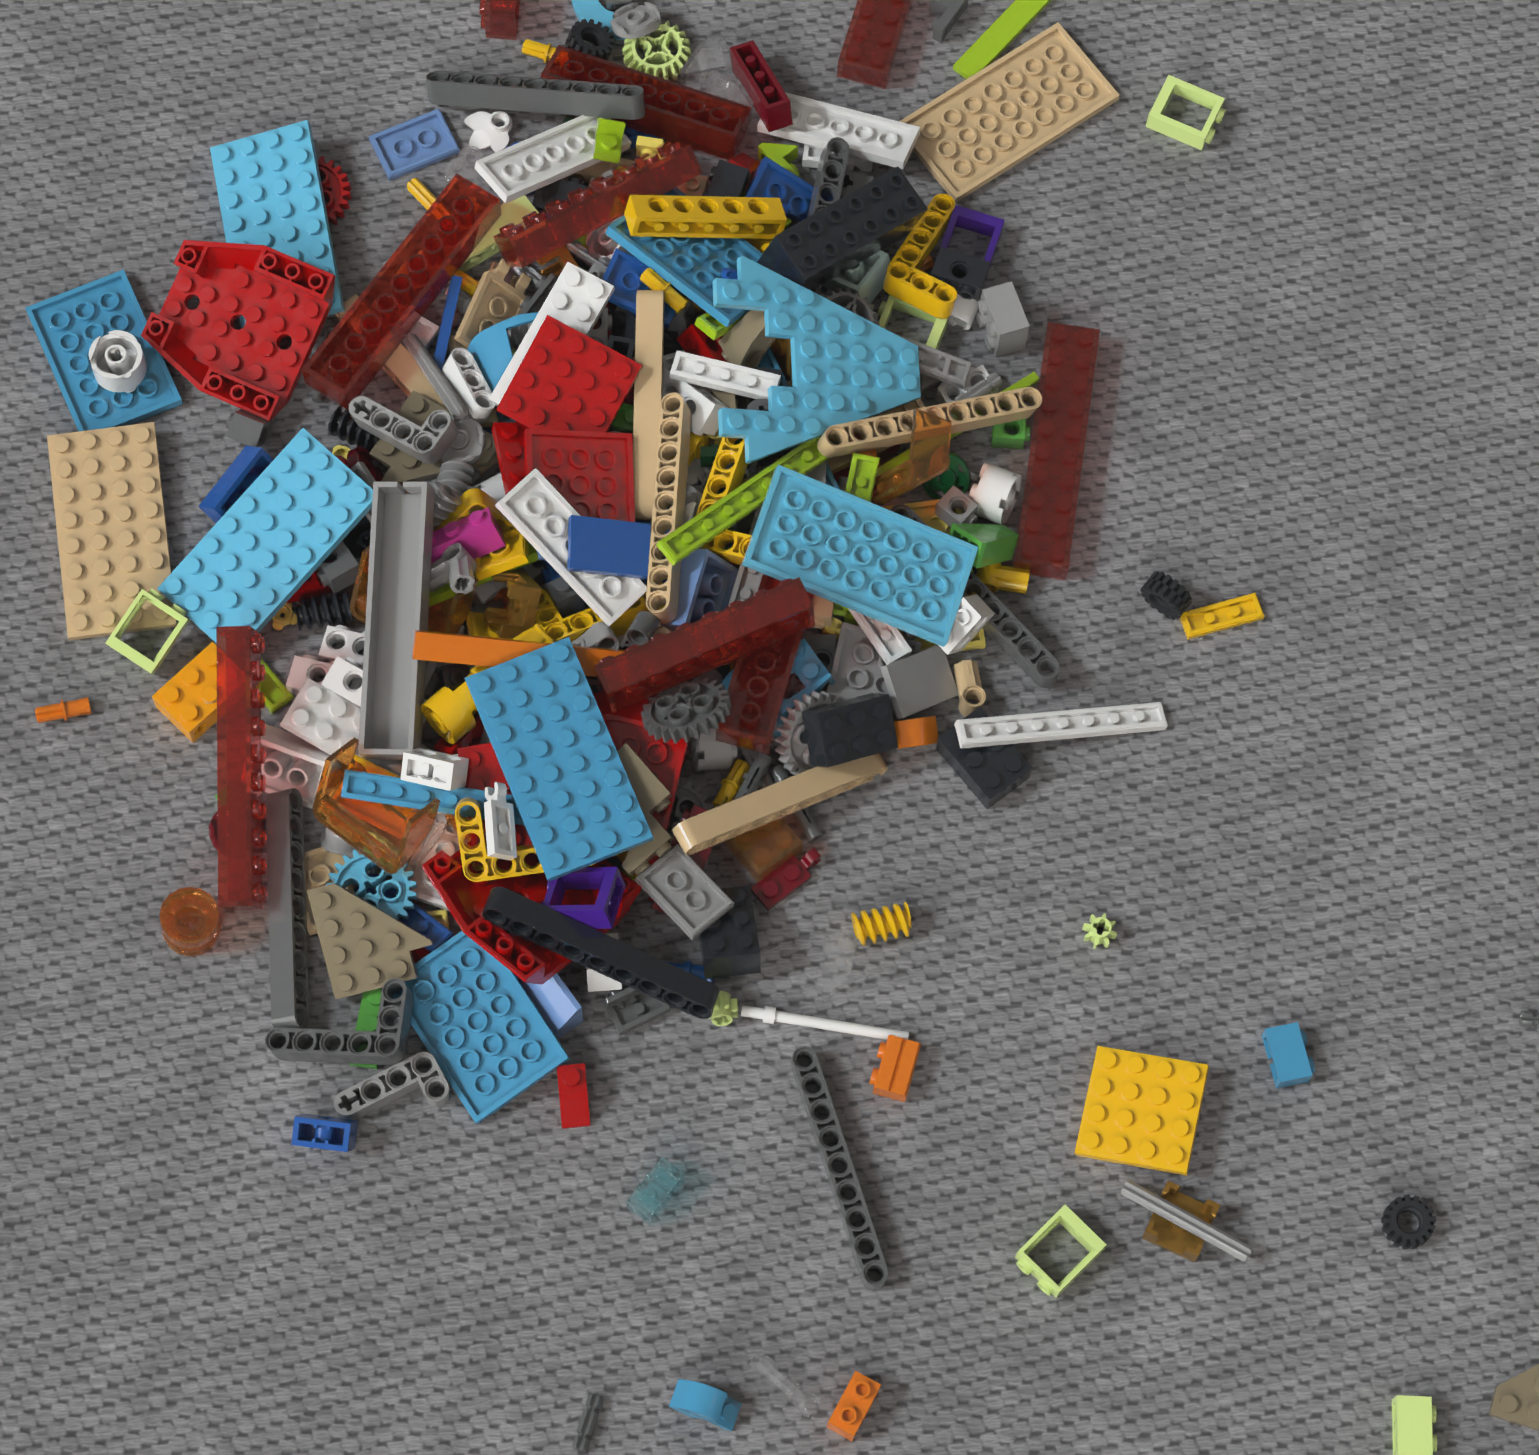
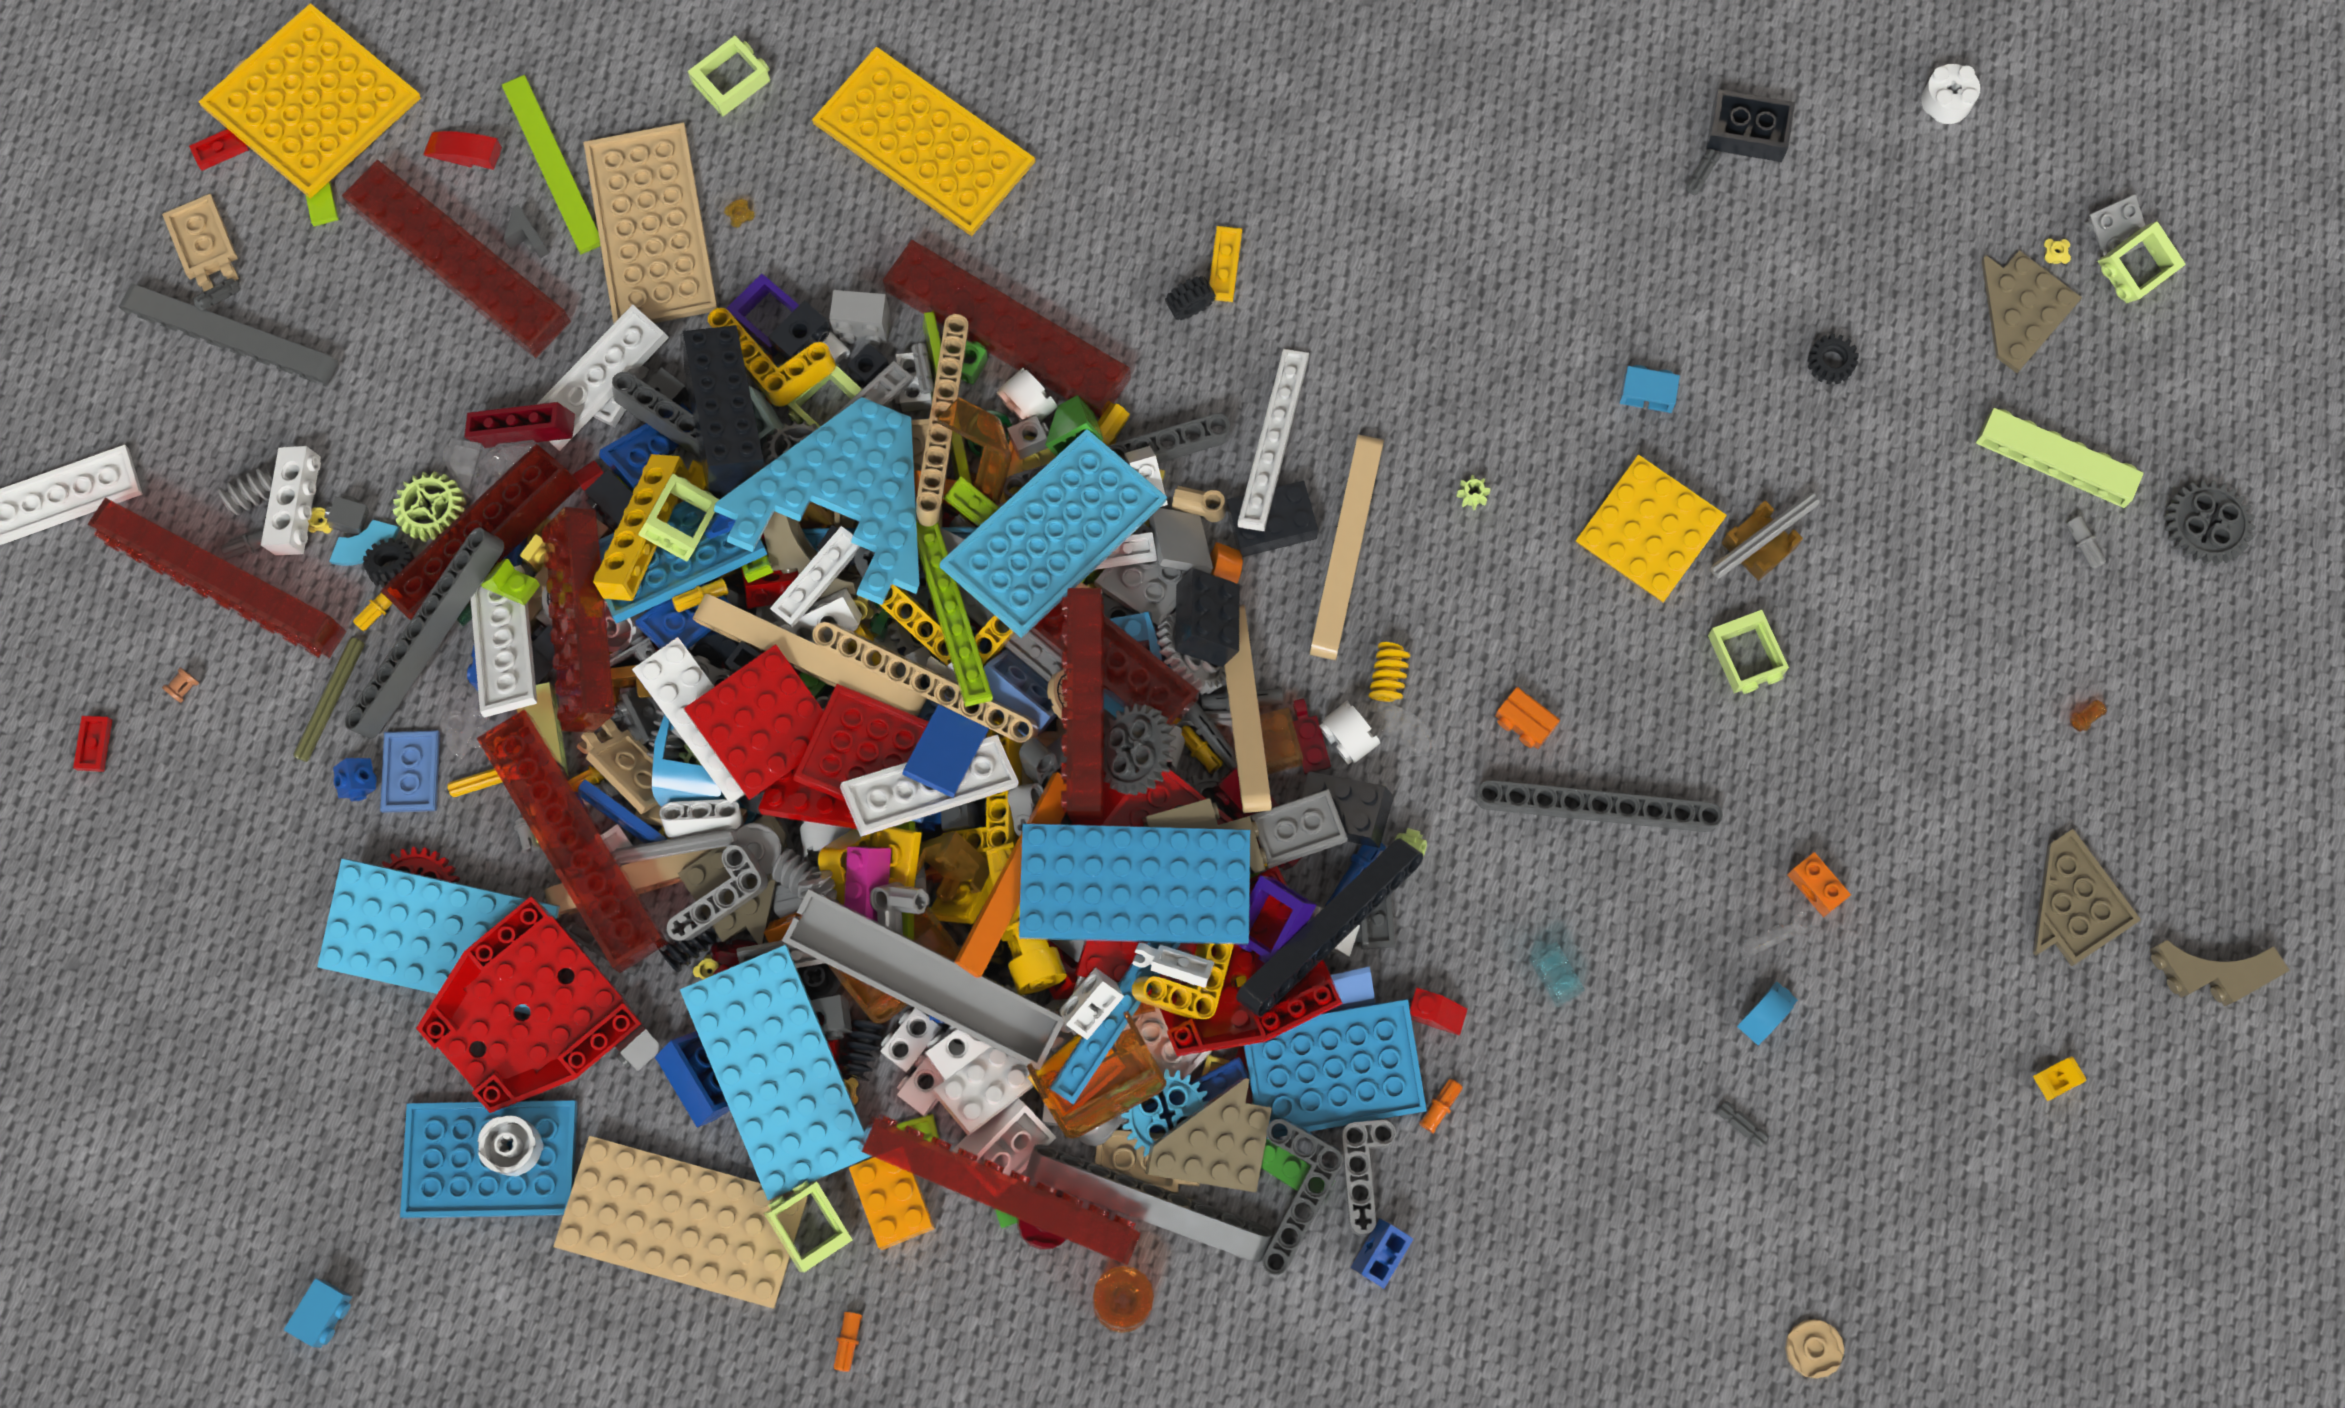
camera: 60 degrees left, 5 degrees up
(385, 102) = (354, 778): none -> blue brick
(449, 53) = (328, 699): none -> olive axle
(486, 132) = (431, 699): white plate -> none
(486, 1135) = (1441, 1105): none -> orange axle
(636, 21) = (389, 510): light grey tile -> none
(700, 238) = (668, 536): none -> yellowish green window
(771, 1015) = (1431, 806): white bar -> none
(781, 154) = (594, 441): lime slope -> none
(804, 908) = (1350, 732): none -> white brick
(968, 341) = (866, 357): none -> black brick
(989, 835) = (1346, 547): none -> tan beam
(1060, 173) = (739, 206): none -> clear yellow plate
(1208, 303) = (924, 141): none -> yellow plate

